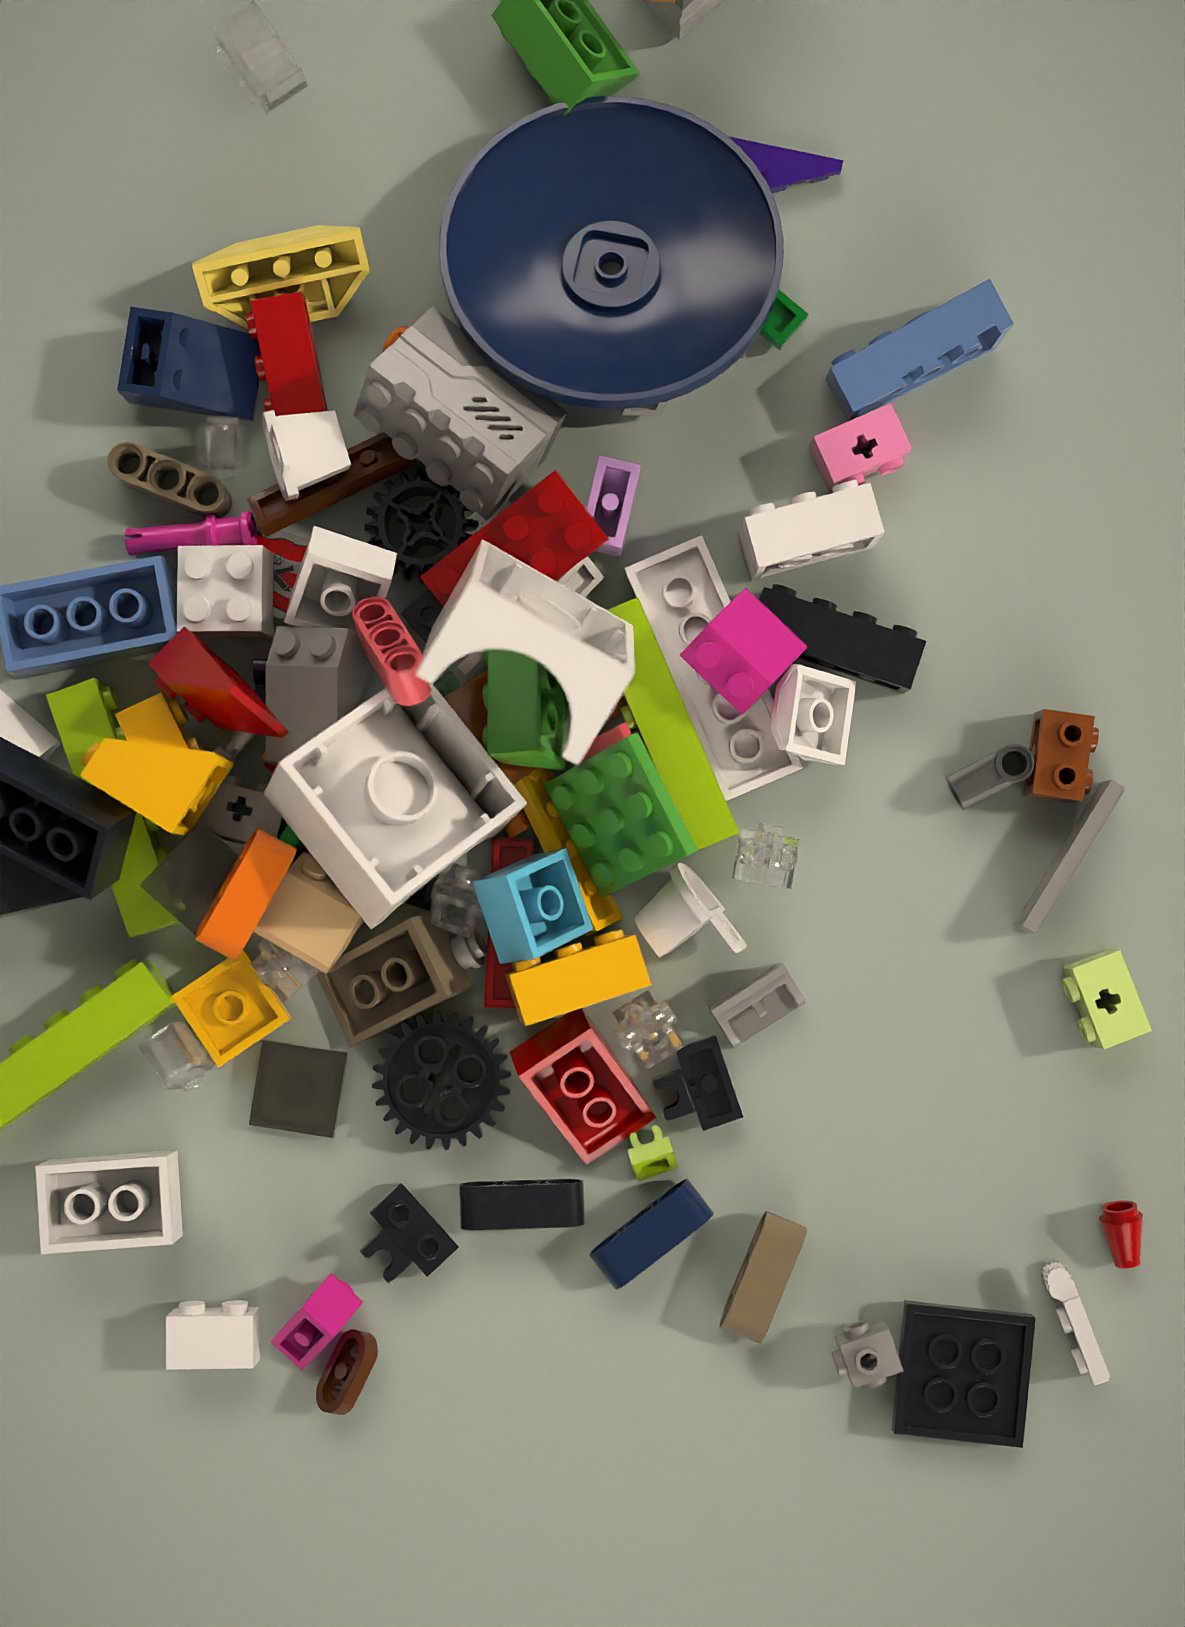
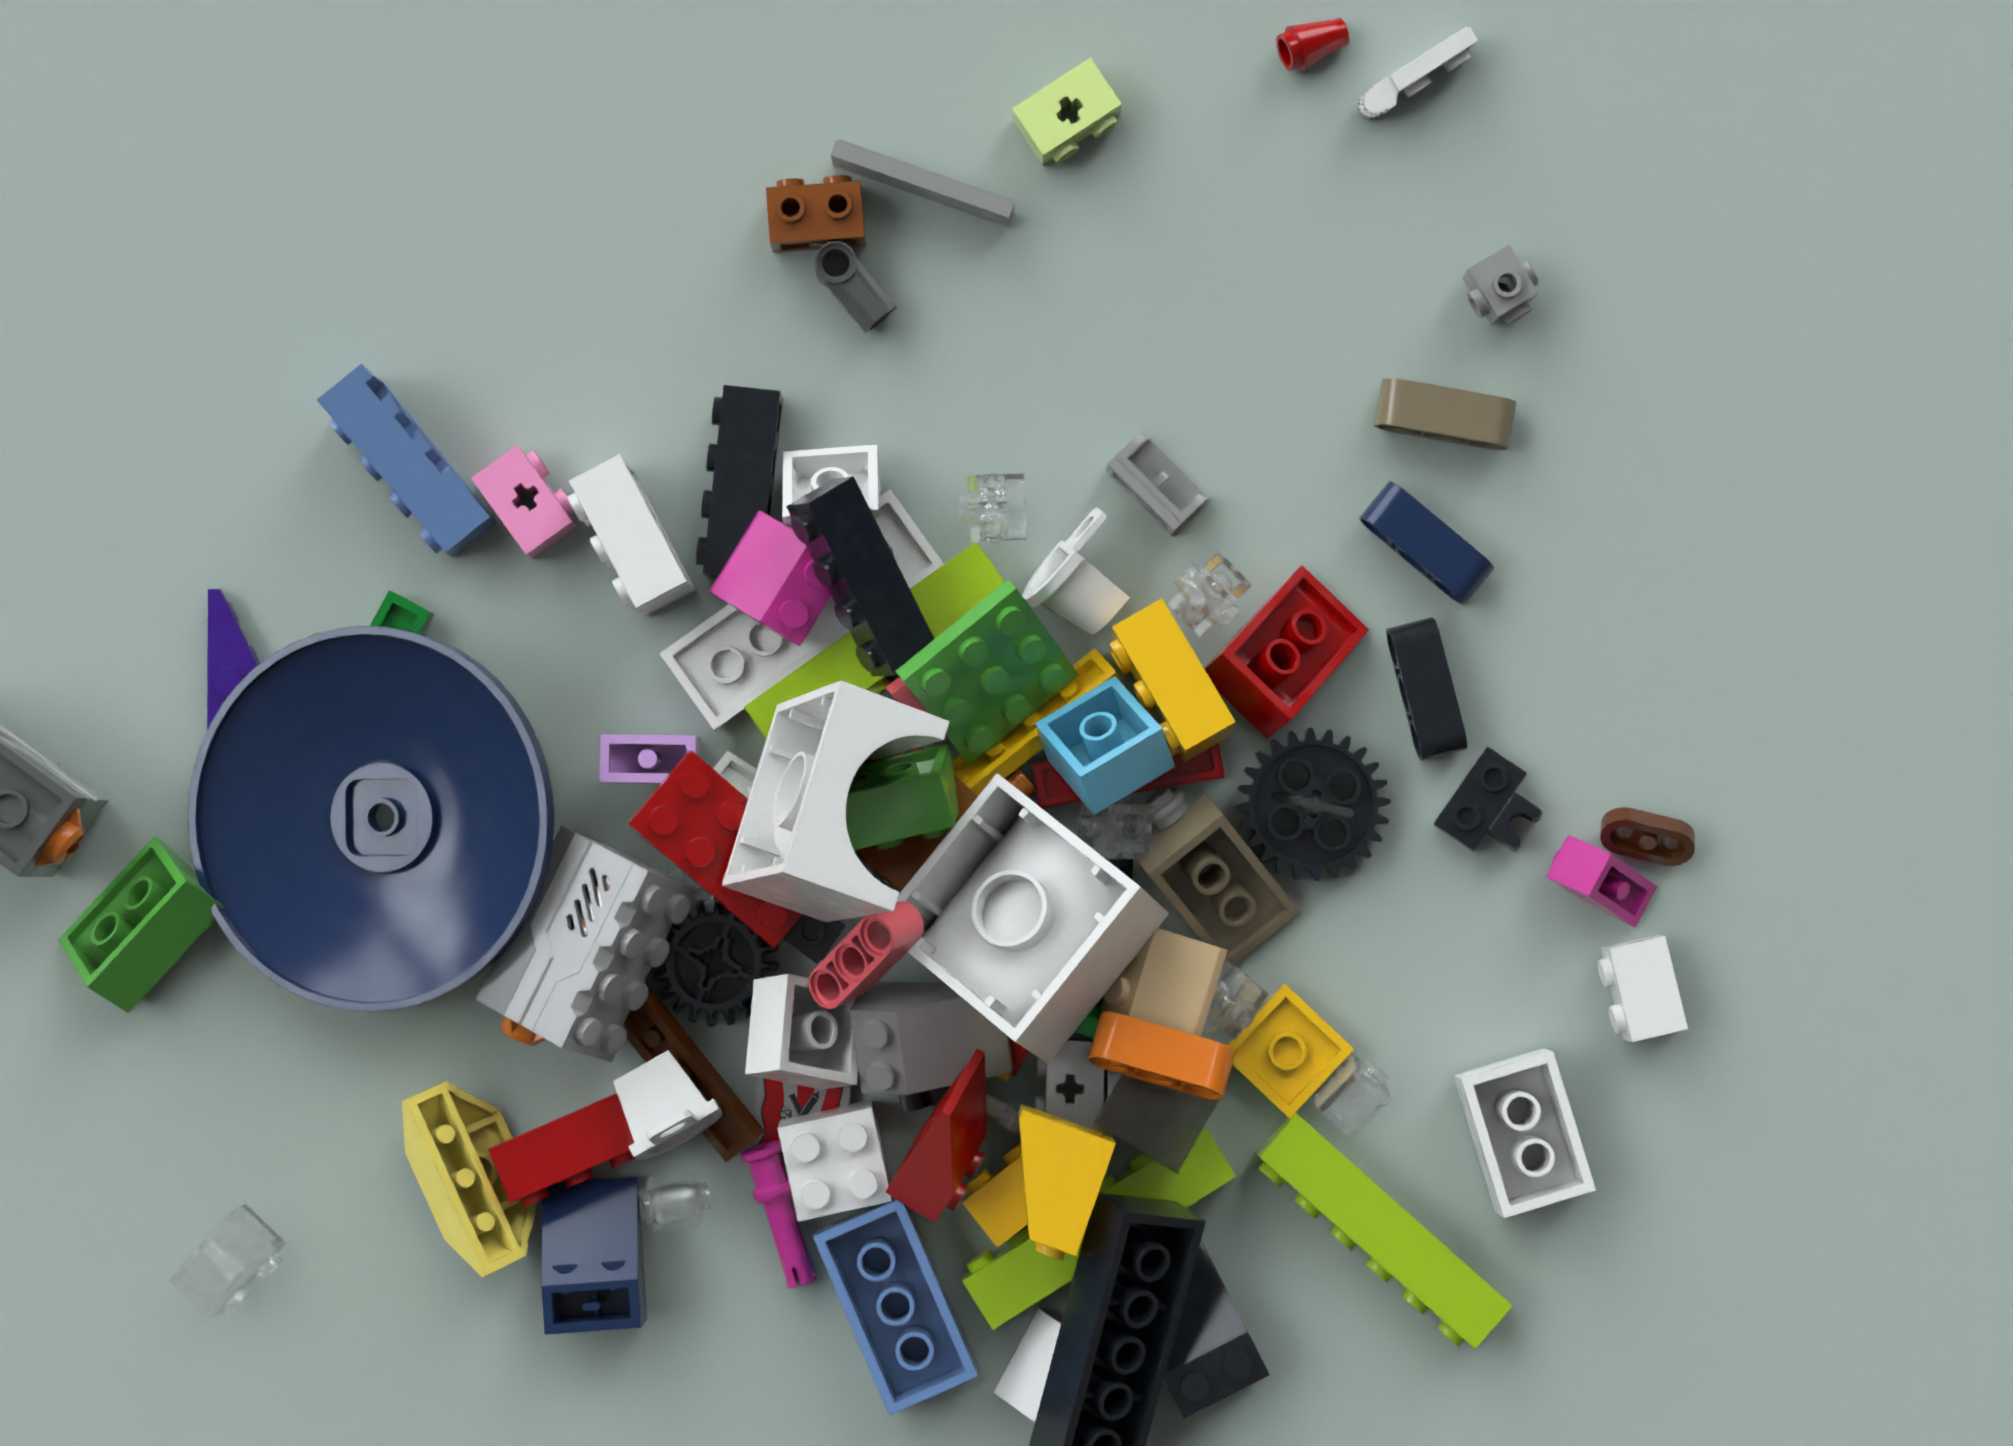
camera: 100 degrees left, 0 degrees up
(155, 467) = (711, 1270): dark tan beam -> none
(298, 1088) = (1357, 958): clear smoke tile -> none
(652, 1157) = (1345, 560): lime tile -> none
(701, 1085) = (1256, 524): black plate -> none
(730, 720) = (860, 575): none -> black brick
(963, 1374) = (1498, 180): black plate -> none

